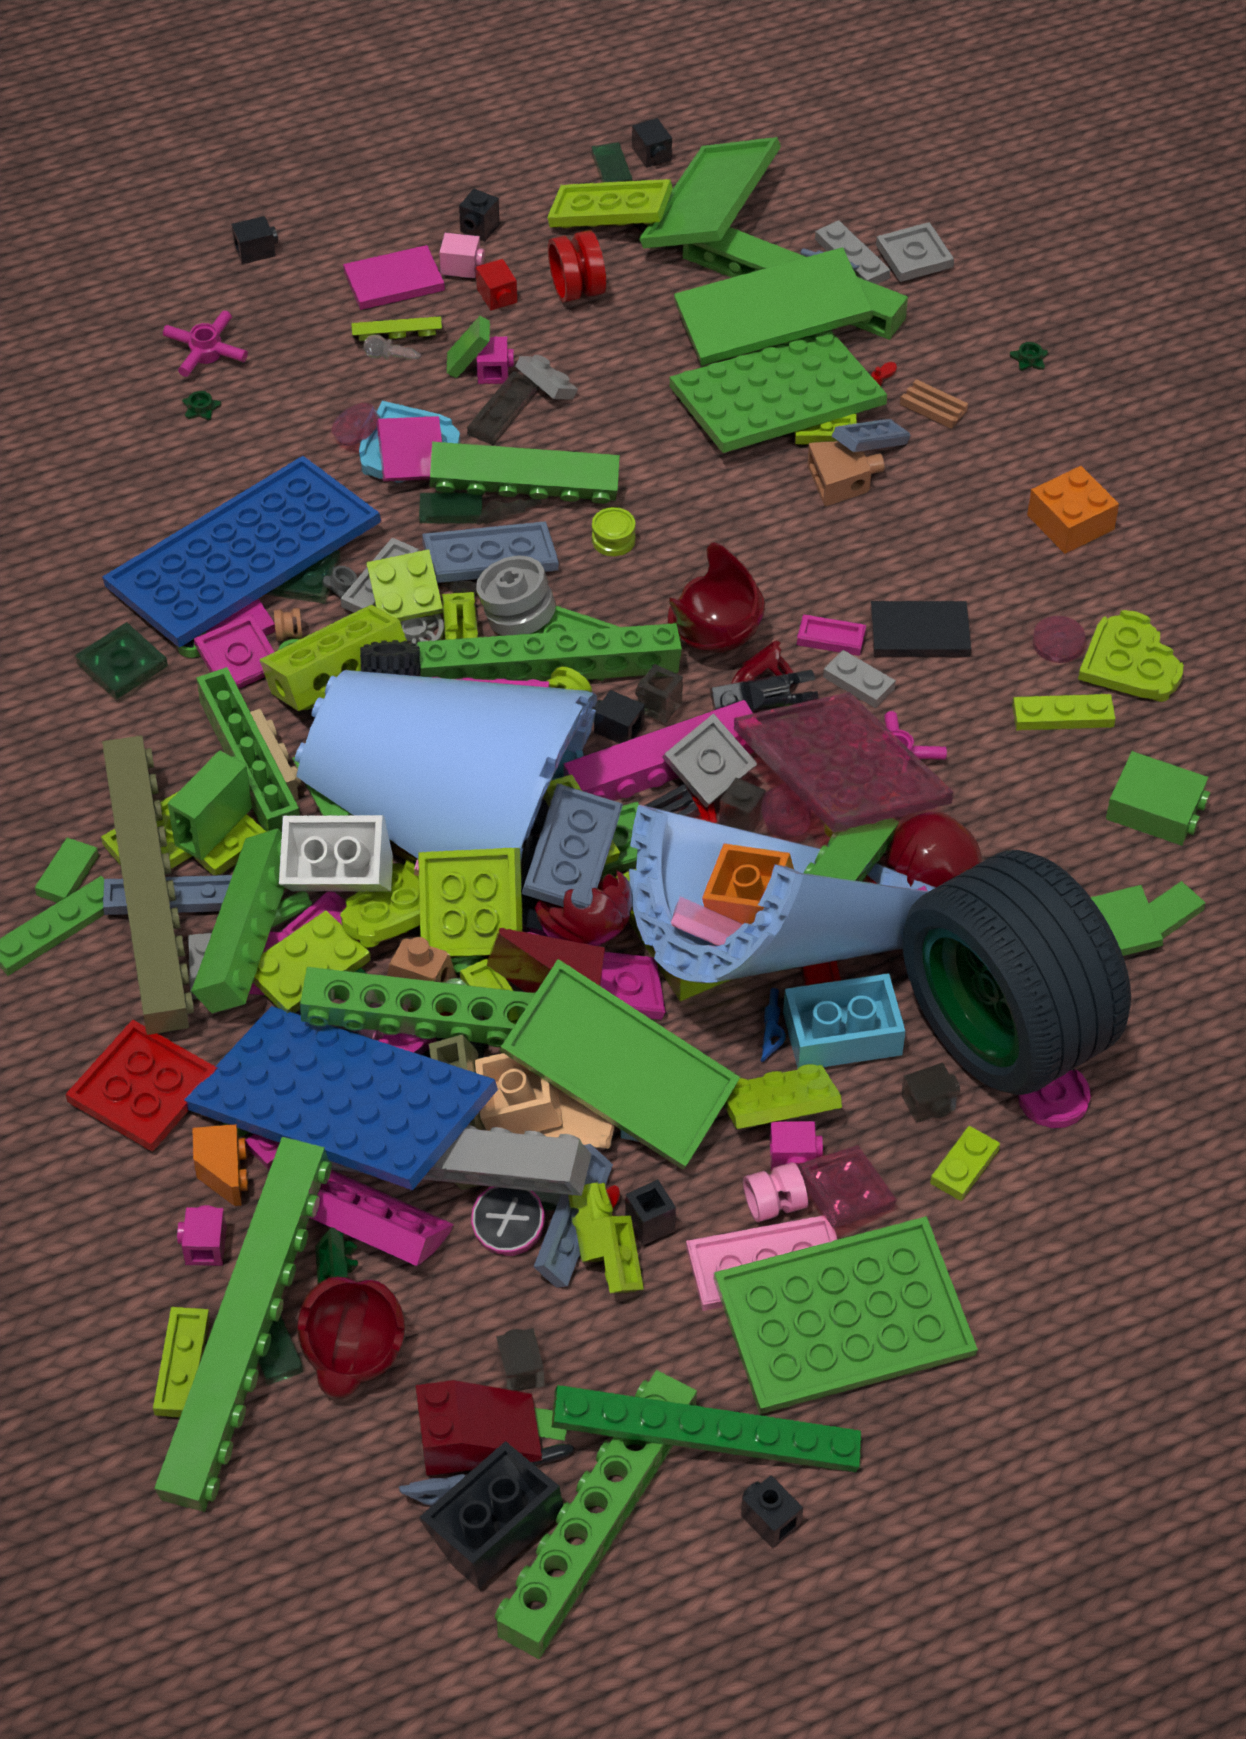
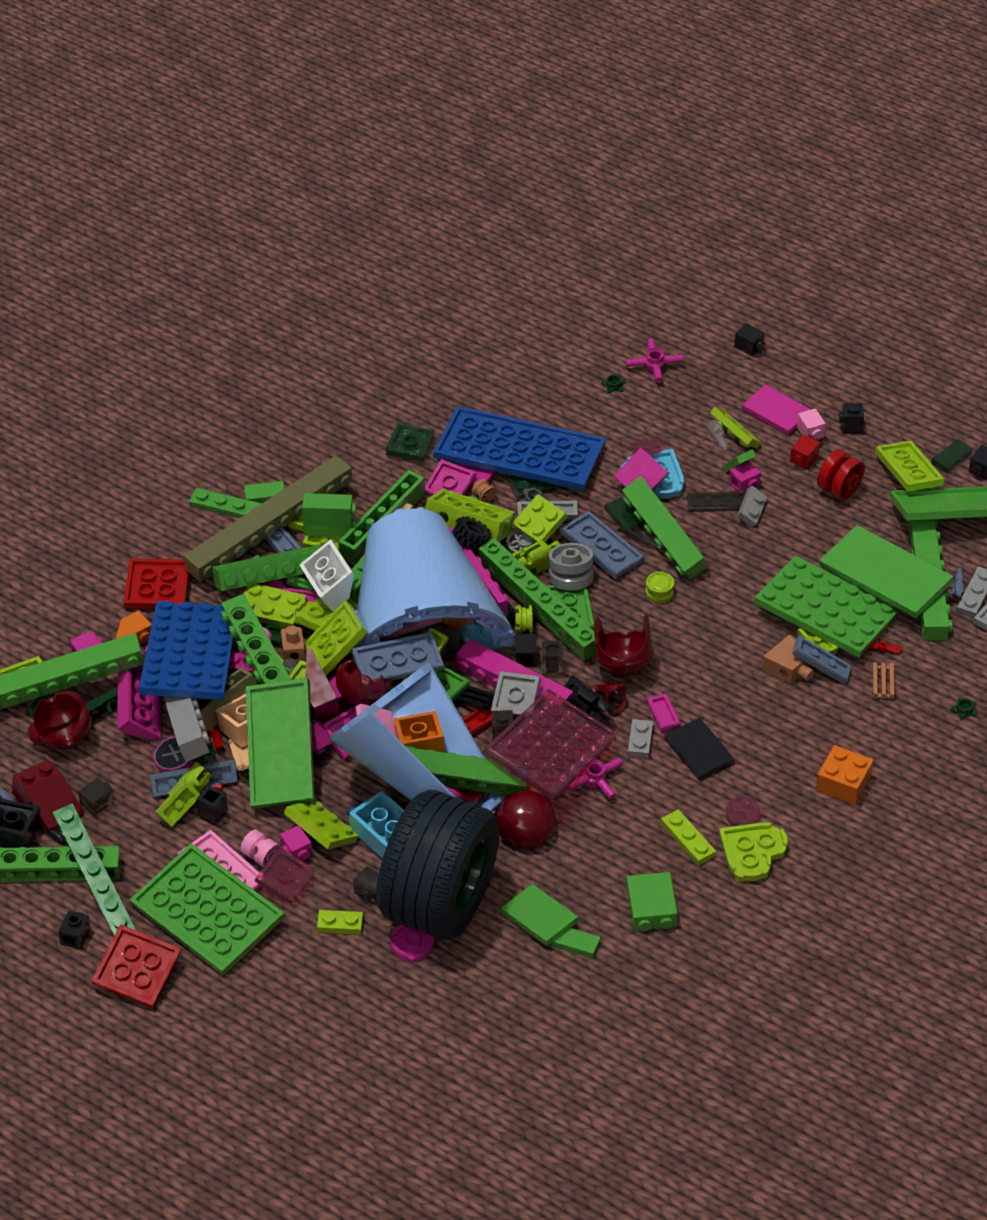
camera: 60 degrees right, 5 degrees down
(905, 1457) = (136, 966): none -> red plate

